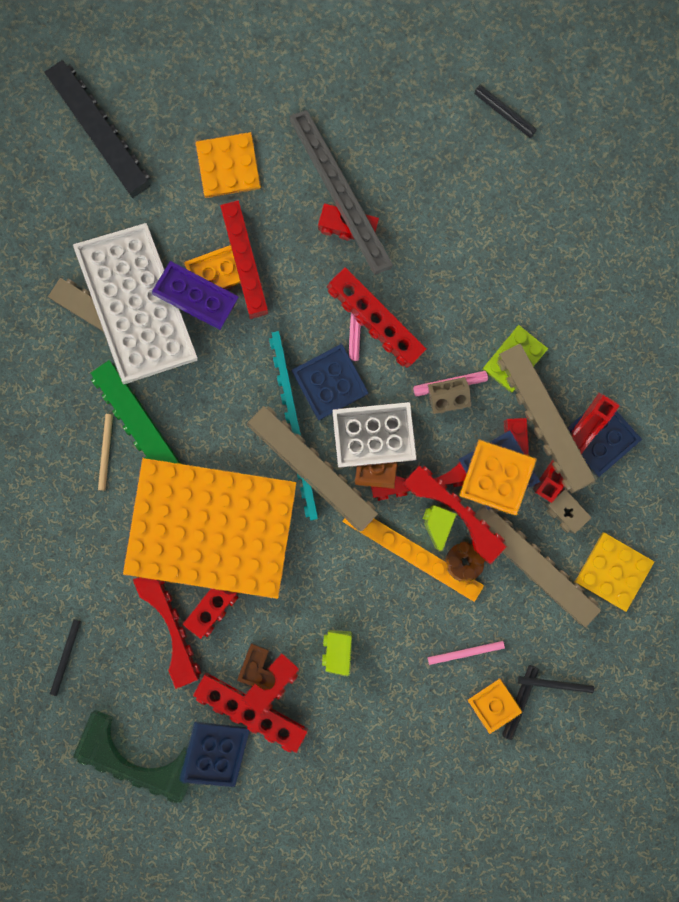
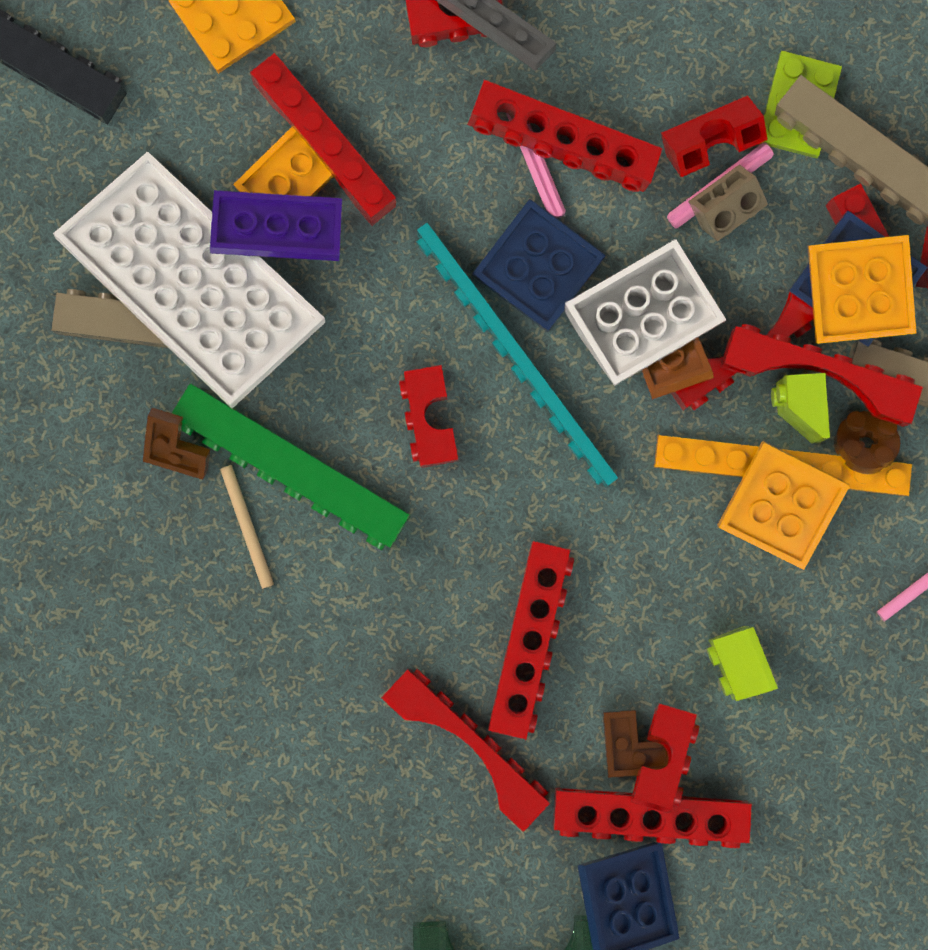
camera: 25 degrees left, 0 degrees up
(65, 657) = (331, 864): black bar -> none
(80, 390) = (168, 451): none -> reddish brown plate
(210, 528) = (463, 566): light orange plate -> none
(234, 421) = (422, 389): none -> red arch
(312, 468) = (576, 405): dark tan brick -> none
(402, 575) = (783, 505): none -> light orange plate
(473, 353) = (734, 123): none -> red arch

